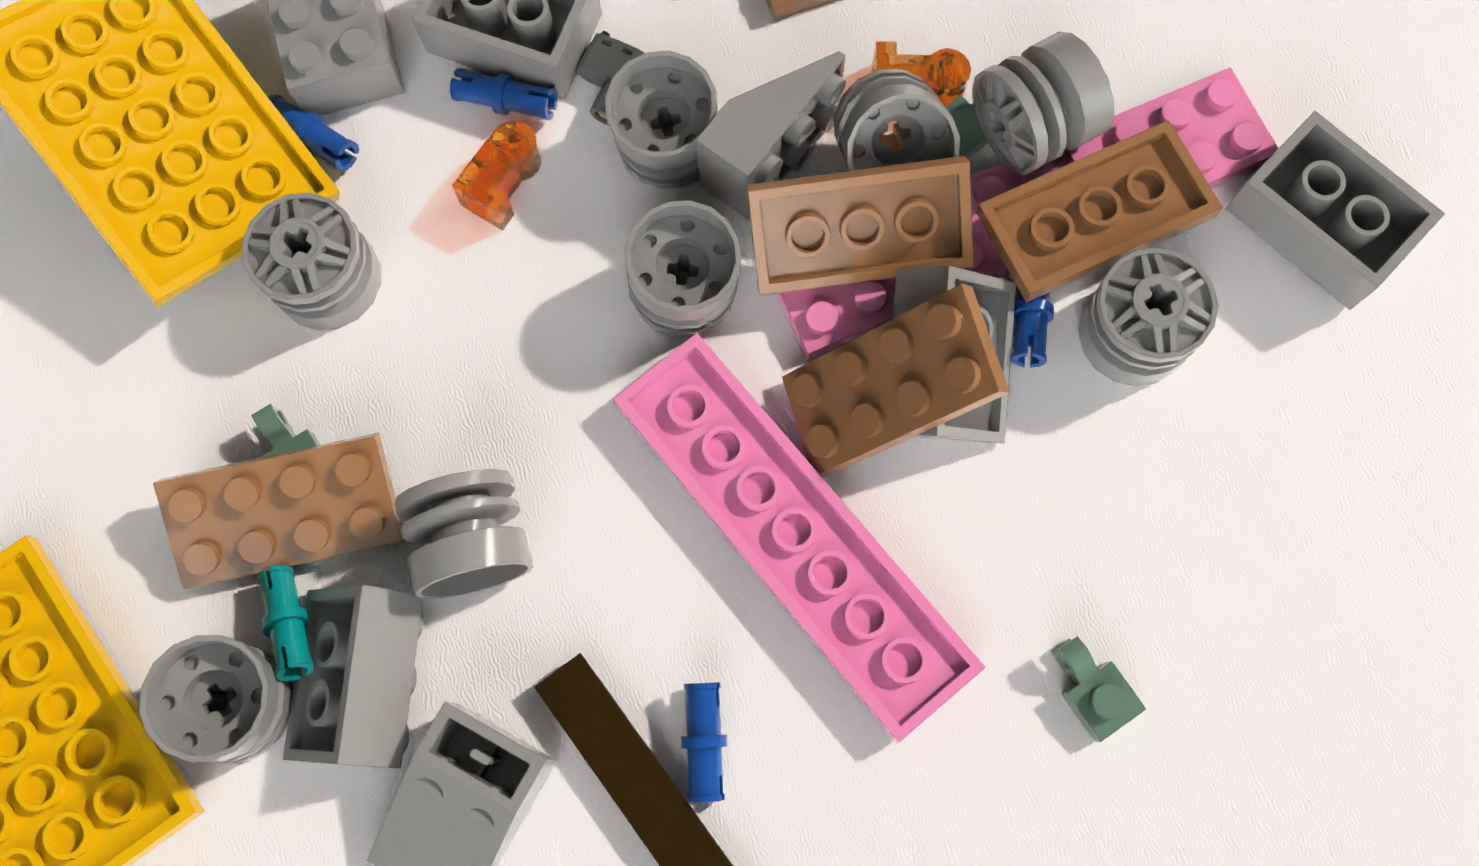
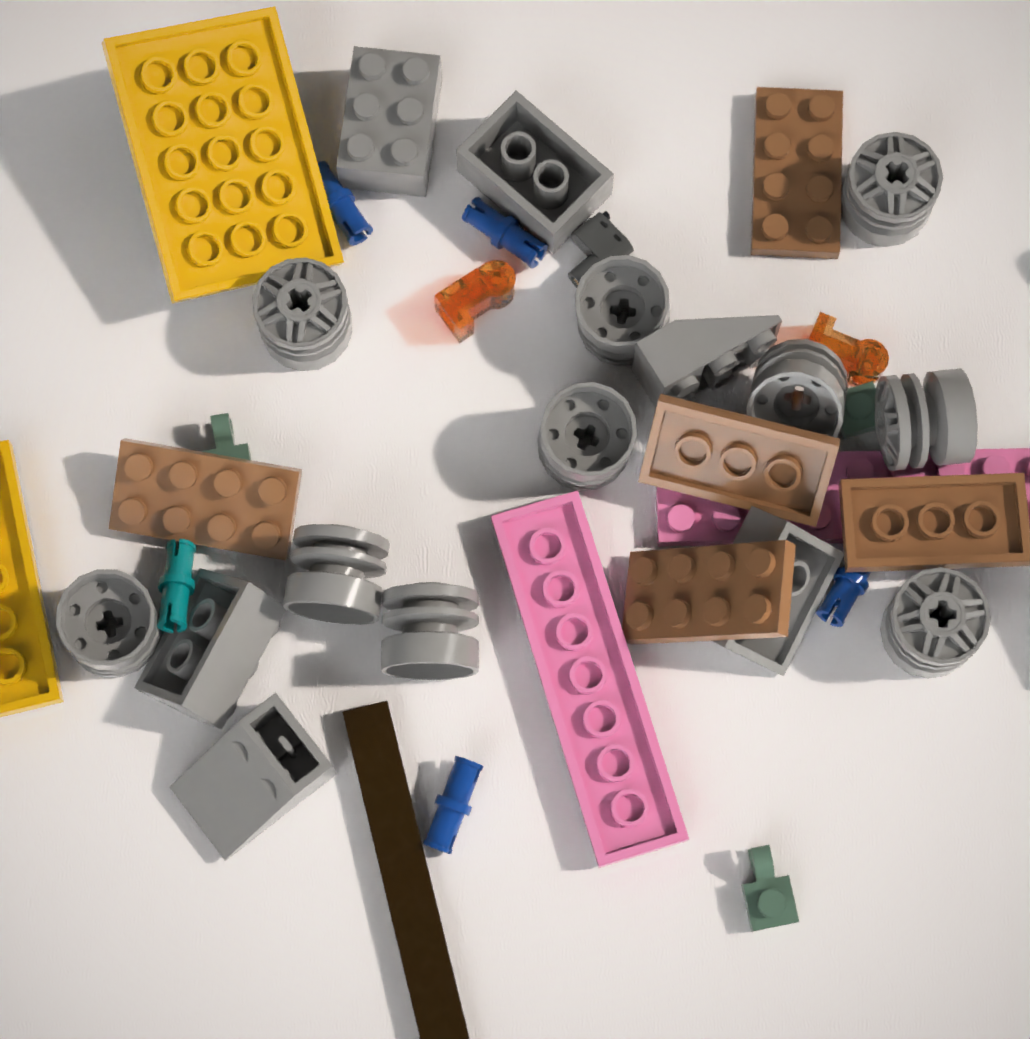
camera: 20 degrees right, 0 degrees up
(593, 545) = (430, 623): none -> light grey wheel

